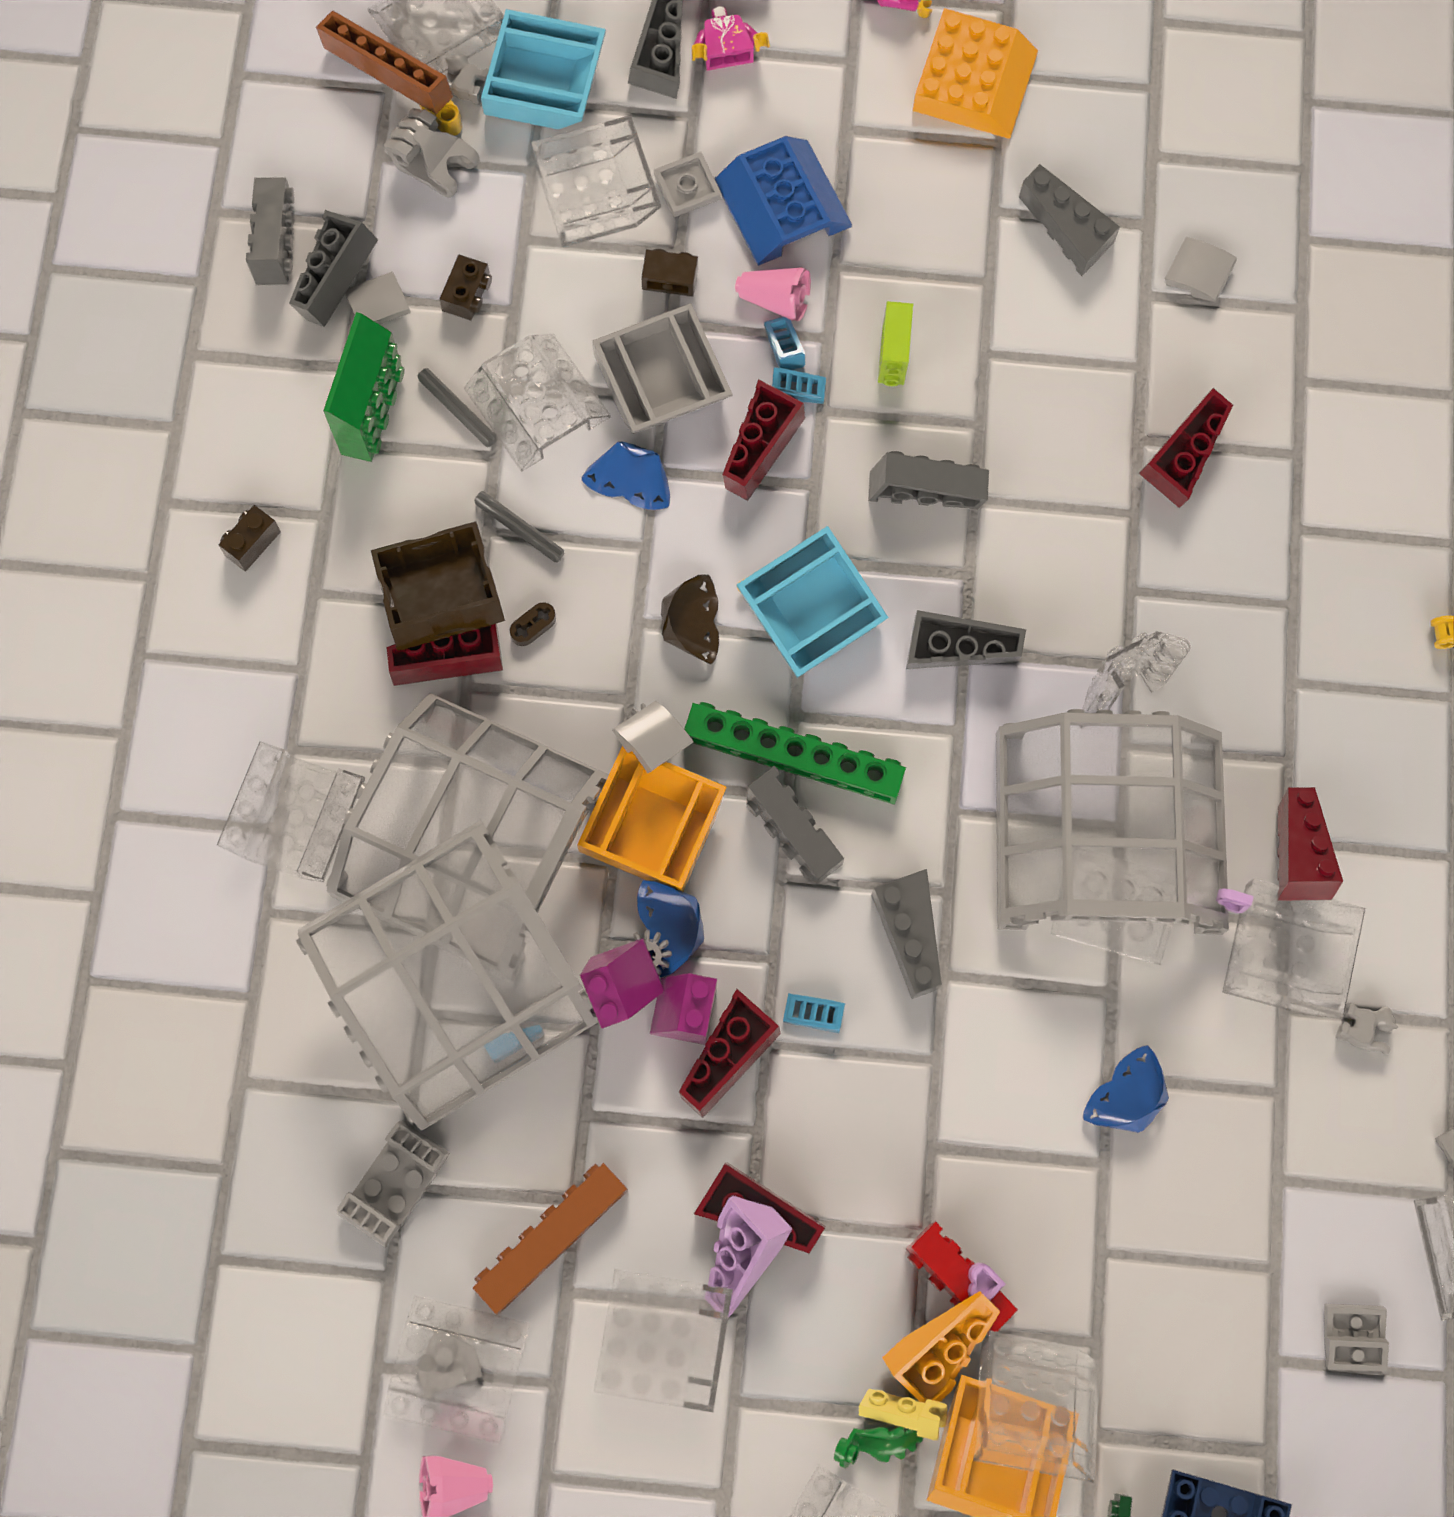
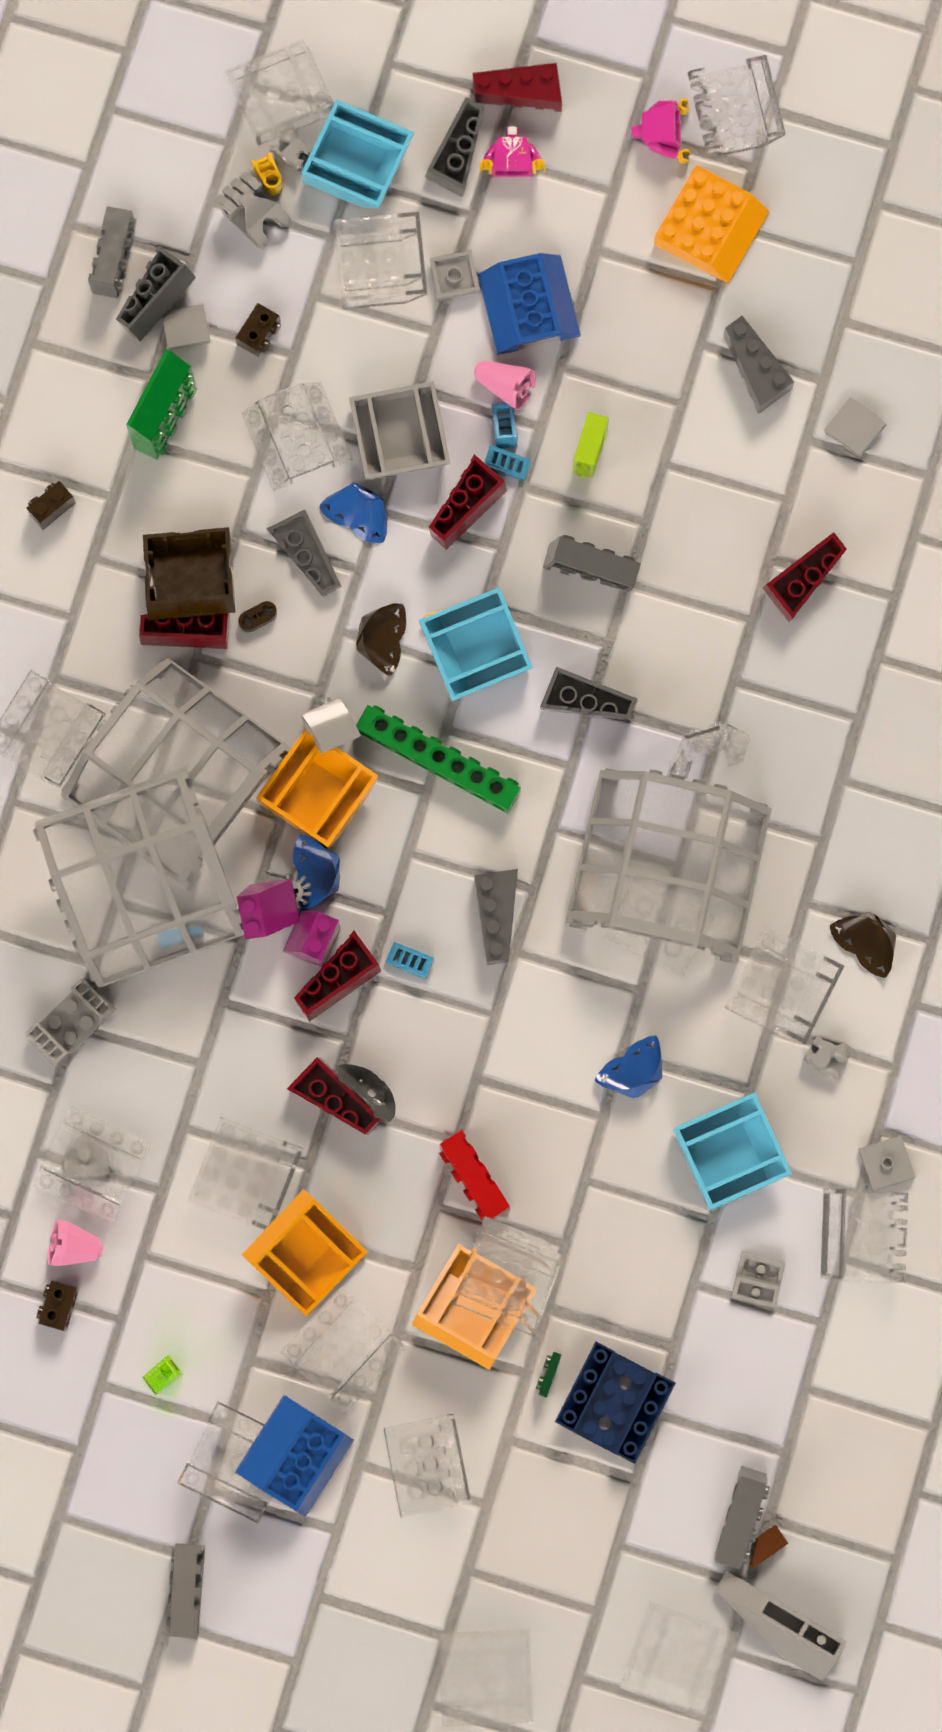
camera: 15 degrees right, 5 degrees up
(384, 62) = (229, 127): dark orange brick -> none
(456, 407) = (232, 428): dark grey axle -> none
(519, 526) = (262, 536): dark grey axle -> none
(549, 1239) = (179, 1085): dark orange brick -> none
(571, 528) = (304, 547): none -> dark grey wing
(669, 272) = (424, 349): dark brown brick -> none
(746, 1246) = (320, 1119): lavender wedge -> none
(762, 1431) = (304, 1252): none -> light orange slope
(793, 827) = (424, 816): dark grey wedge -> none
(819, 1193) = (351, 1077): none -> dark grey piece
(876, 1442) = (389, 1280): green plant -> none
(905, 1412) = (411, 1262): light yellow plate -> none
(936, 1352) = (444, 1224): light orange wedge -> none
(984, 1280) = (488, 1181): lavender tile -> none
(1234, 900) = (744, 940): lavender tile -> none
(1283, 1177) = (731, 1152): none -> medium azure slope
(1305, 849) = (809, 916): dark red wedge -> none
(1381, 871) = (869, 939): none -> dark brown piece

